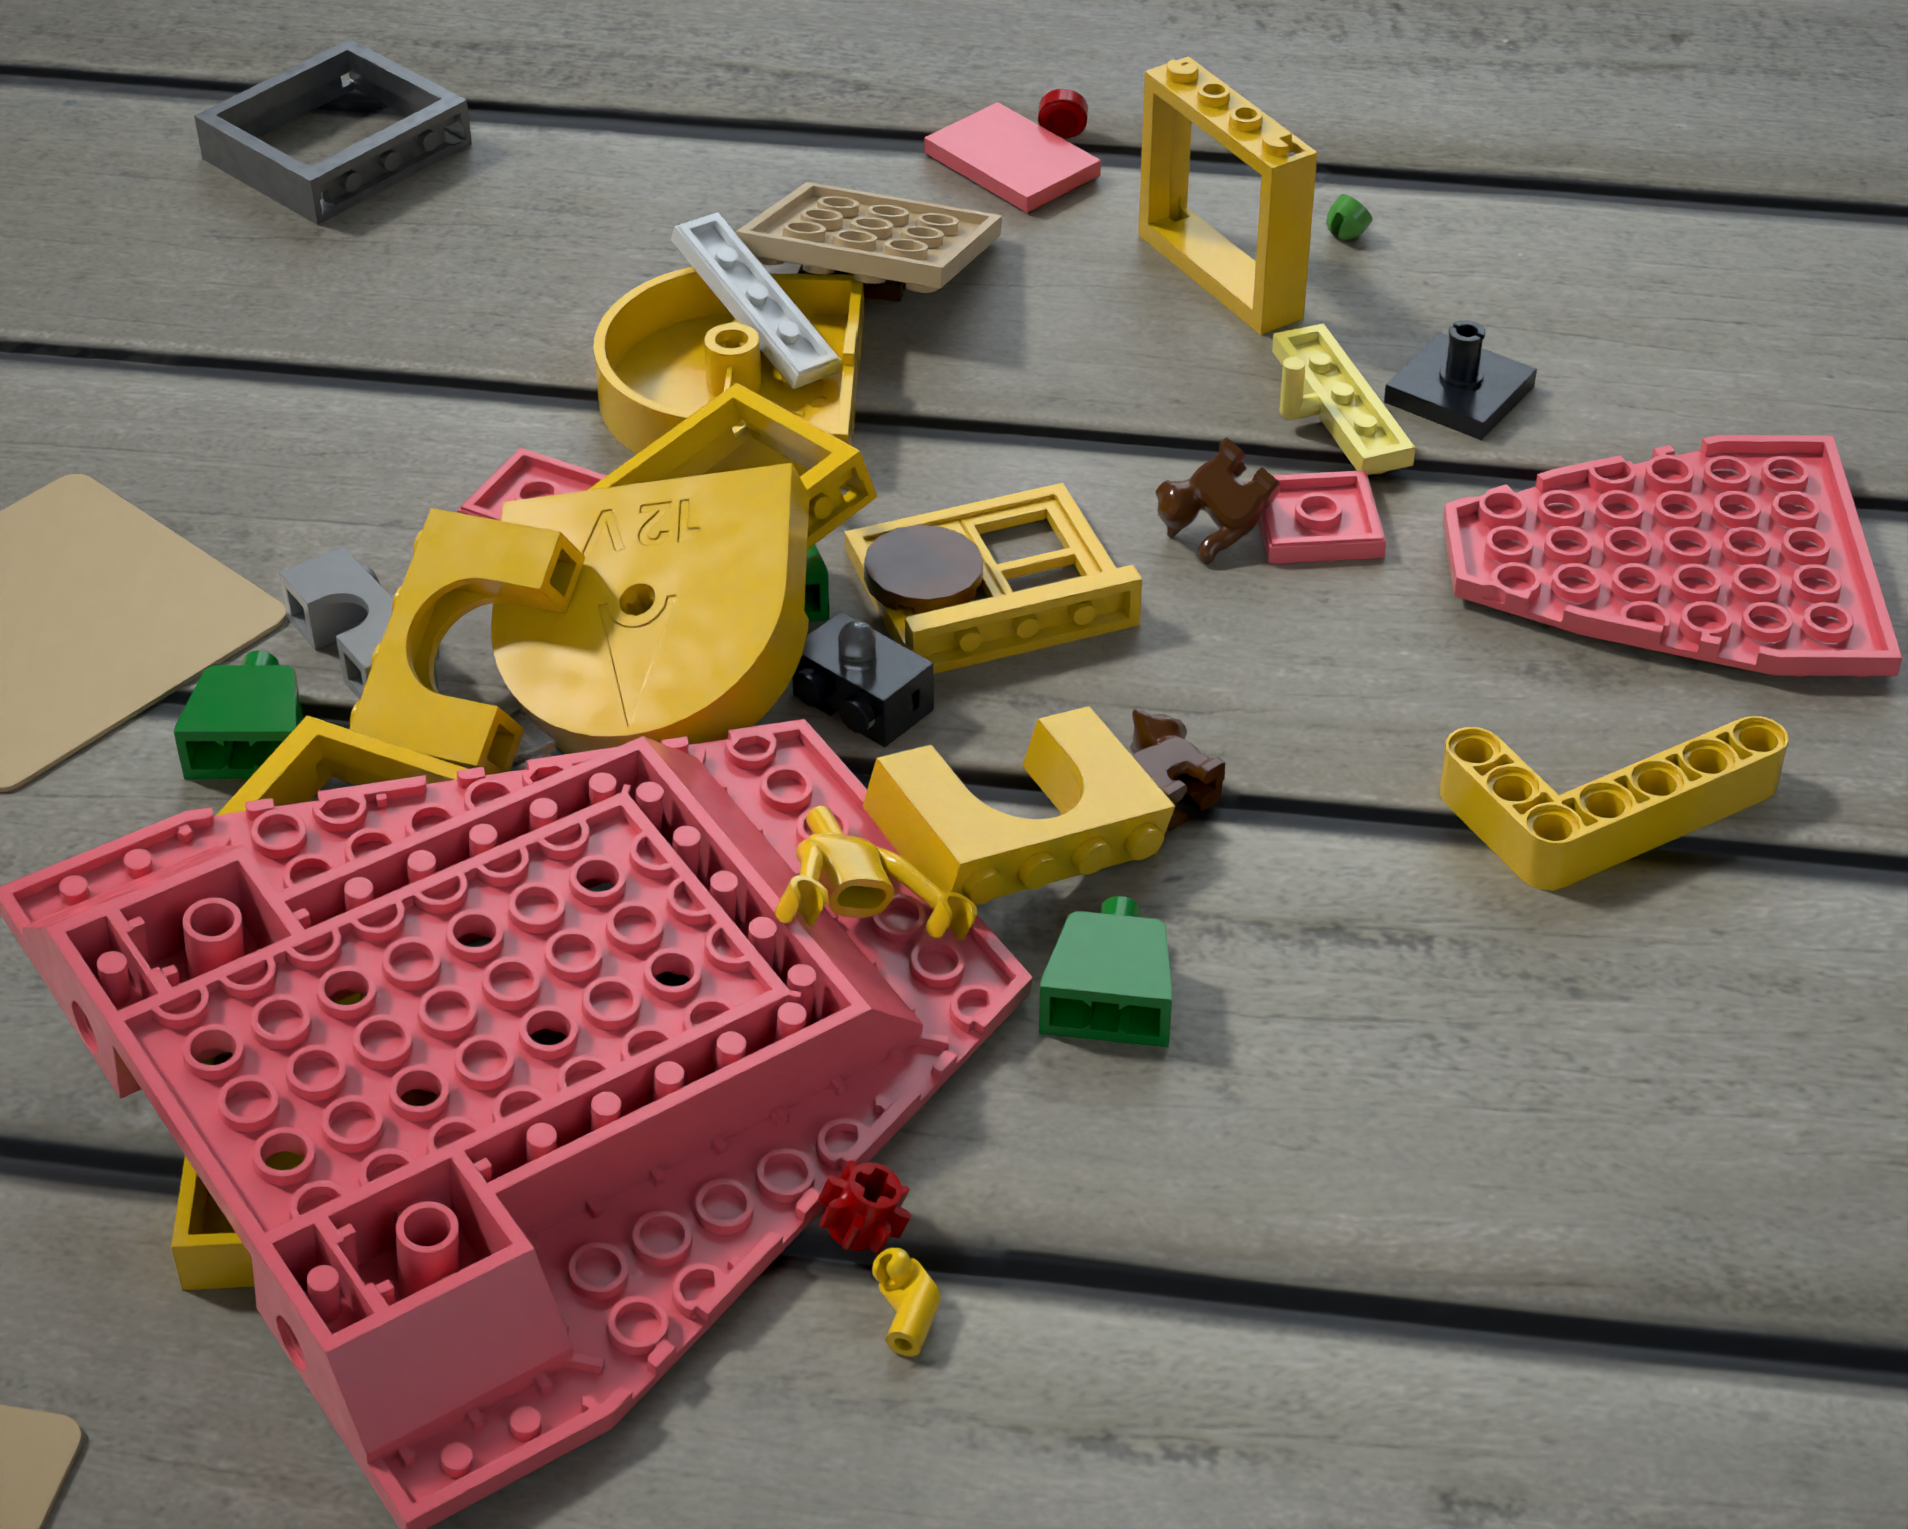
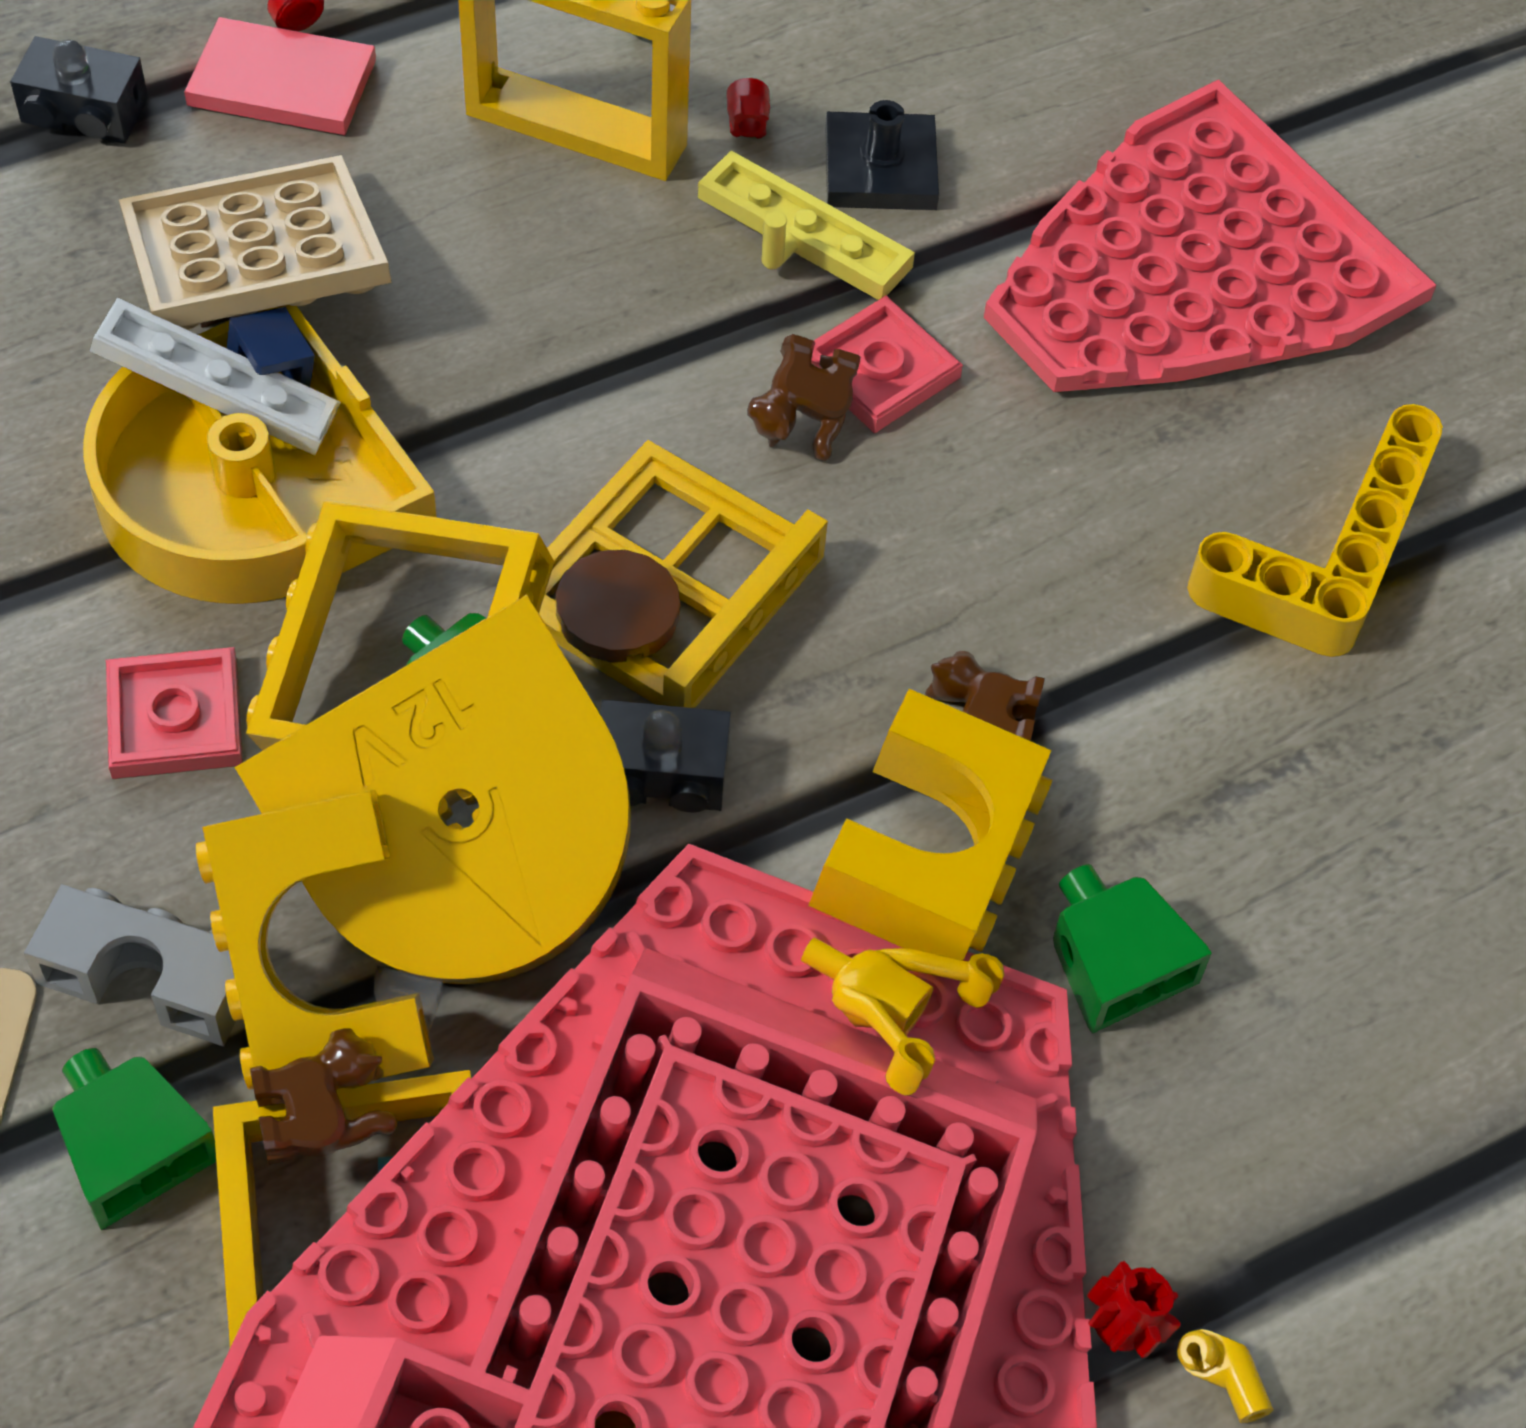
camera: 40 degrees left, 15 degrees up
(366, 731) = (314, 1113): none -> reddish brown animal
(817, 297) = (272, 344): none -> dark blue panel
(846, 107) = (79, 87): none -> black piece
(1373, 306) = (748, 107): none -> red hose

